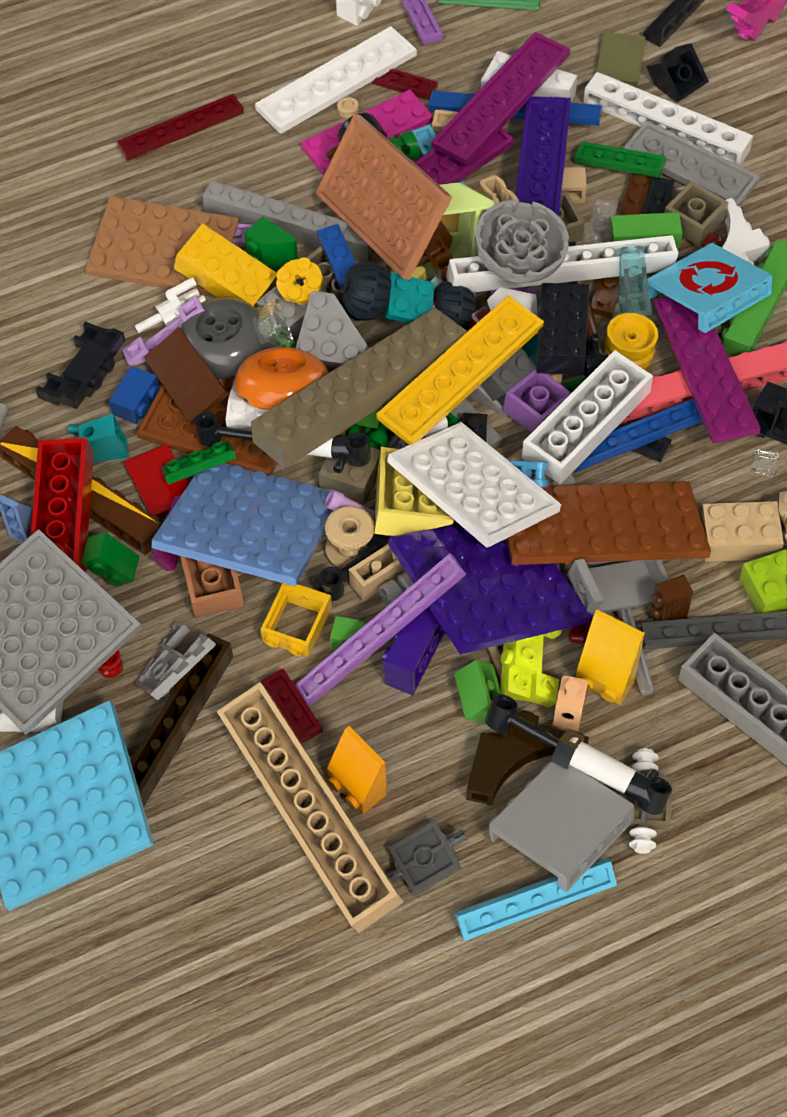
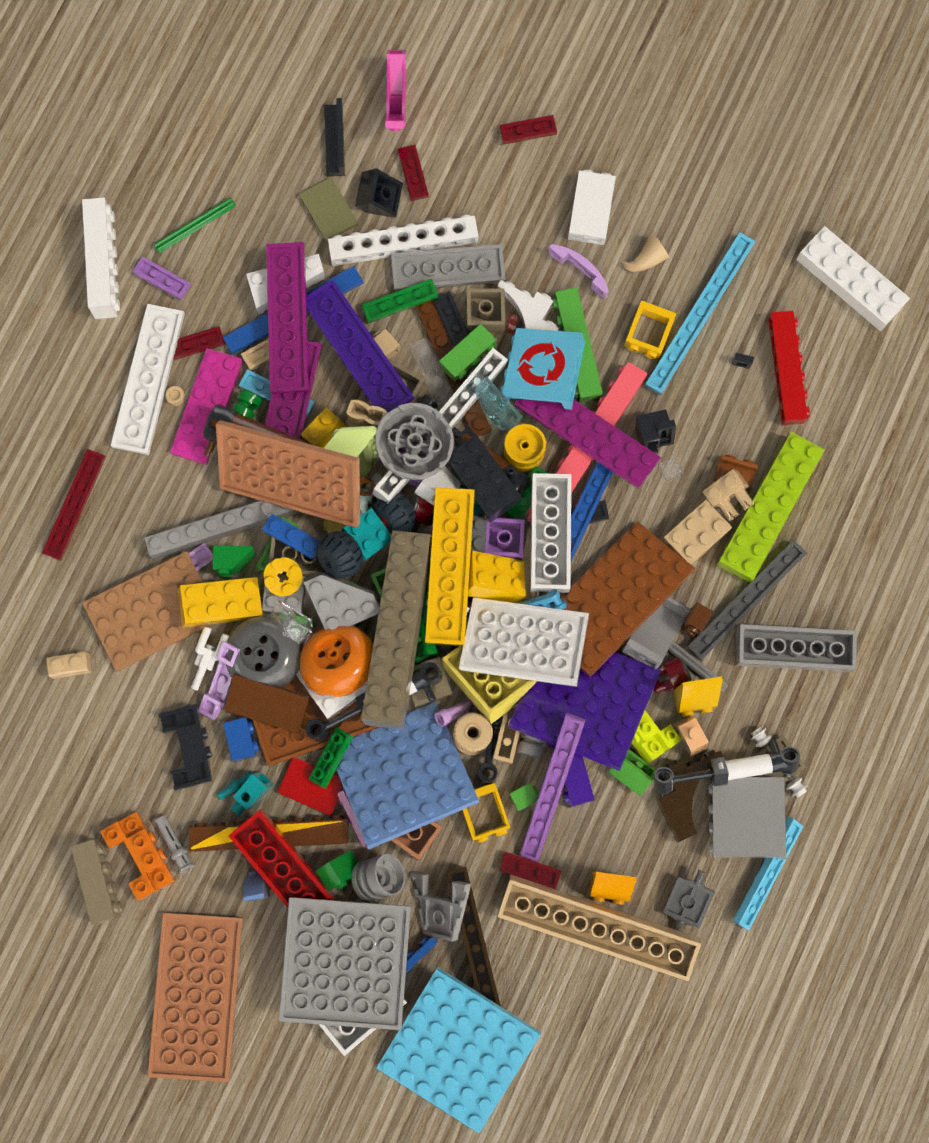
camera: 45 degrees left, 20 degrees up
(51, 235) = (69, 665): none -> tan brick
(119, 695) = (426, 945): none -> blue plate
(141, 588) = (378, 877): none -> light grey wheel
(496, 417) = (496, 578): none -> yellow brick
(725, 79) = (413, 172): none -> dark red tile

